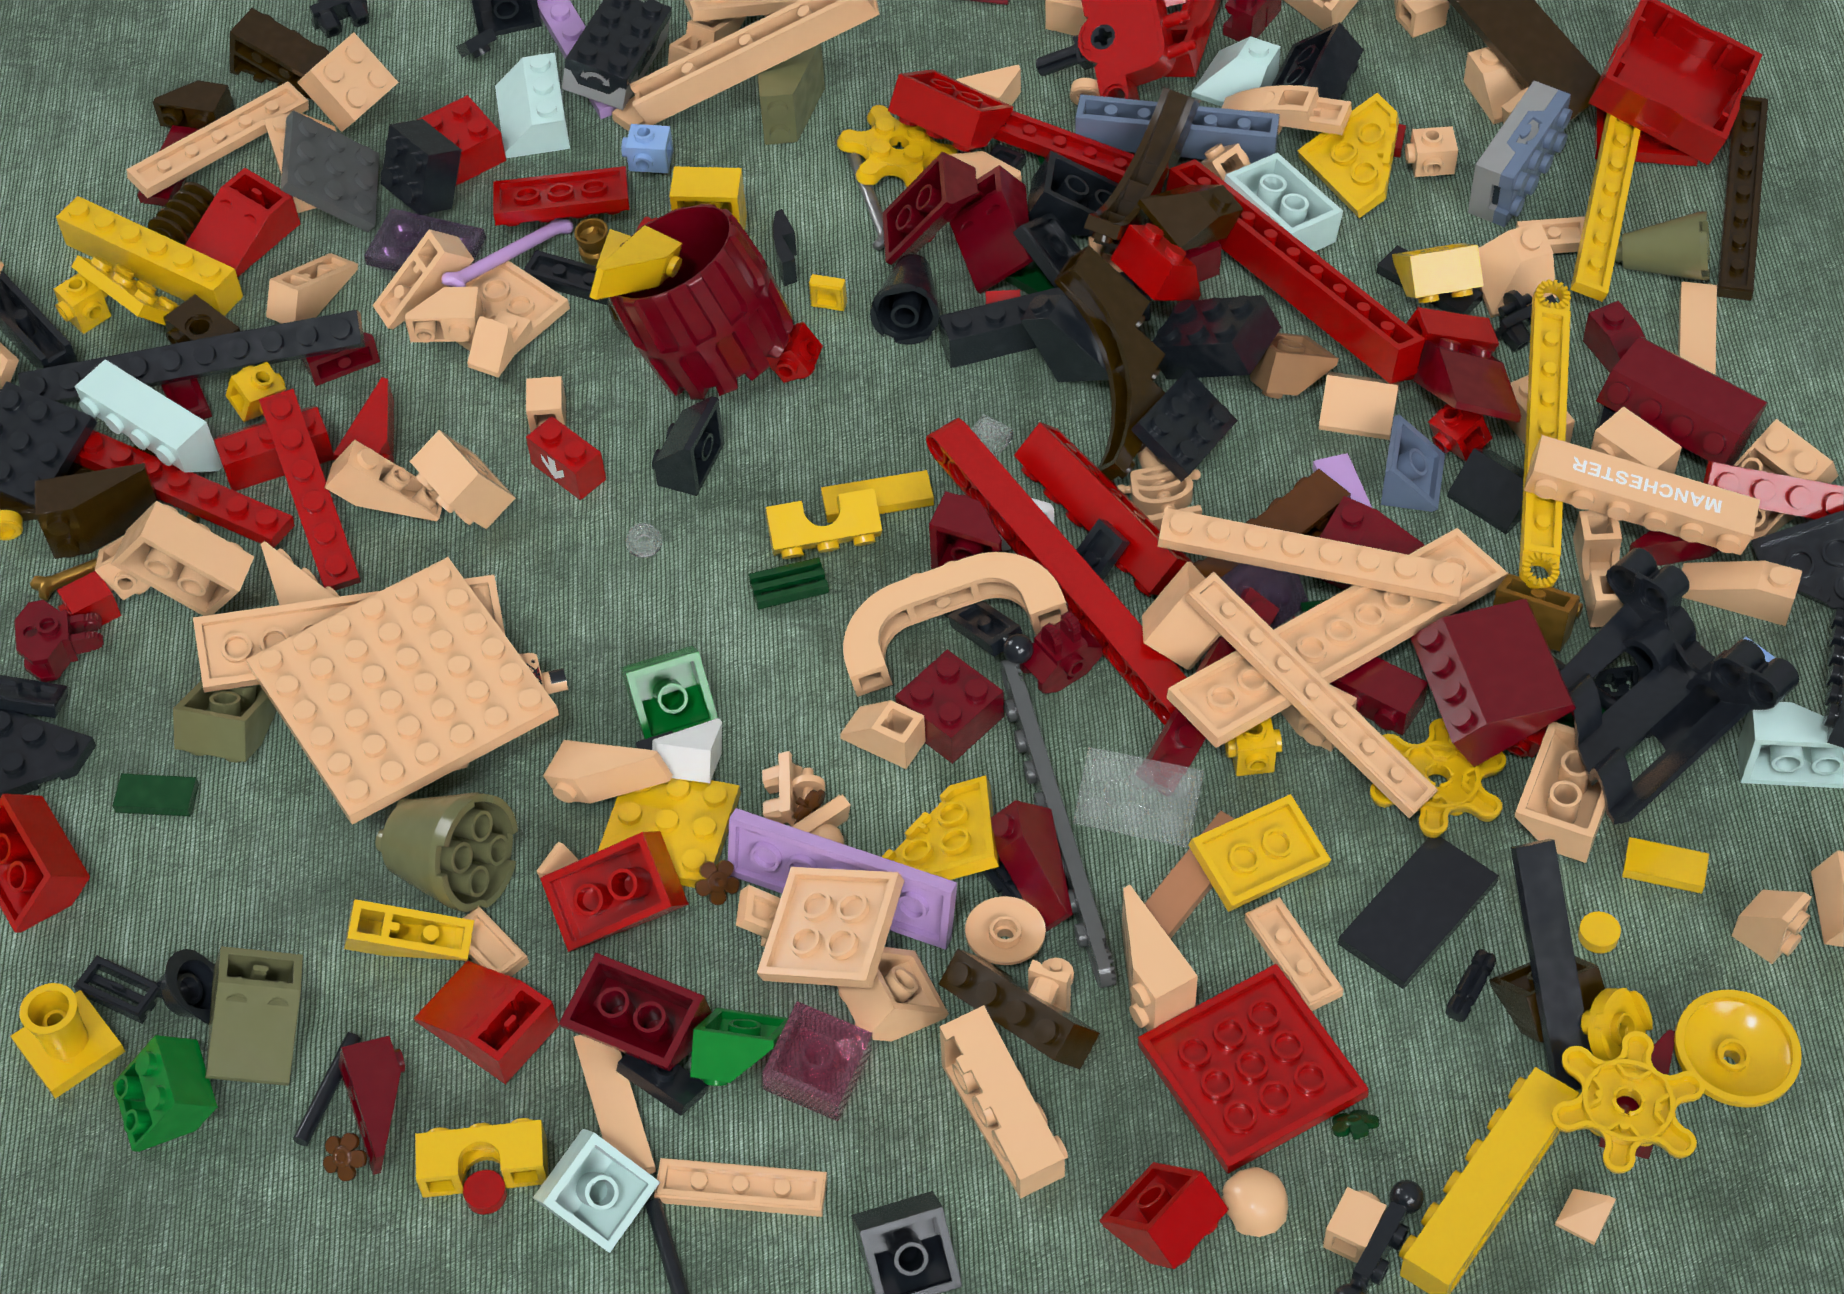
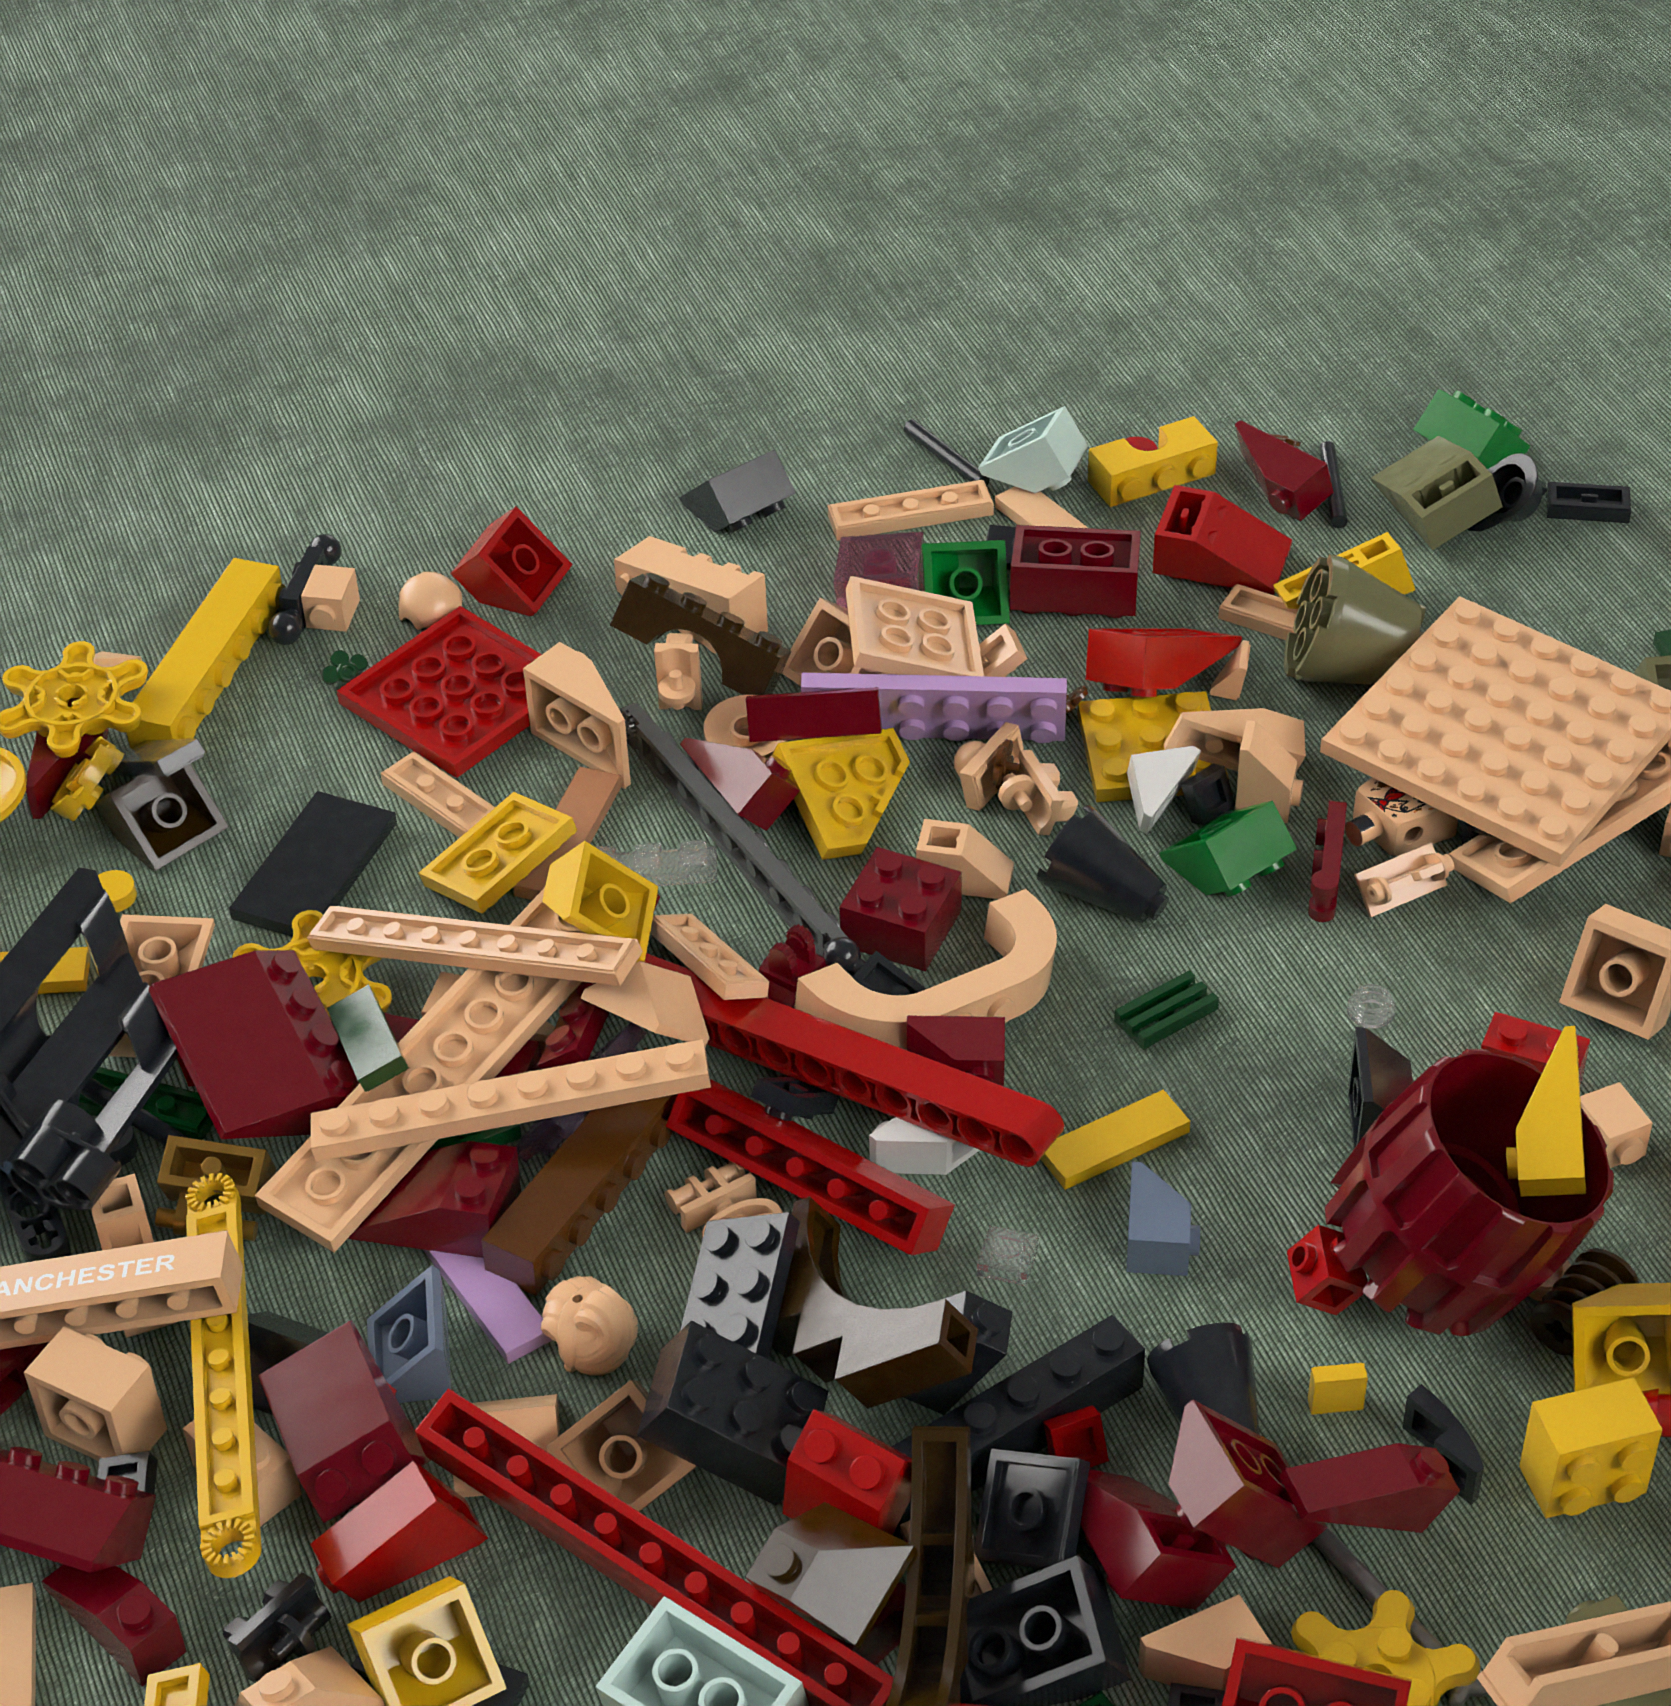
camera: 160 degrees right, 10 degrees down
(63, 1037) = (1595, 444): yellow plant -> none
(540, 629) = (1403, 878): none -> light nougat hinge
(599, 659) = (1327, 863): none -> dark red plate
(608, 726) = (1266, 772): none -> light nougat slope
(784, 692) = (1103, 869): none -> black cone
(793, 532) = (1186, 1045): yellow arch -> none
(847, 210) = (1374, 1488): none -> dark red slope
(884, 417) = (1159, 1226): none -> sand blue slope
(952, 871) = (814, 714): none -> dark red tile
(1119, 683) = (709, 957): none -> light nougat tile
(1205, 670) = (601, 895): none -> yellow slope
(1285, 441) = (589, 1325): none -> light nougat hair
(1405, 657) = (367, 1038): none -> tile
(1470, 985) = (247, 811): black axle -> none

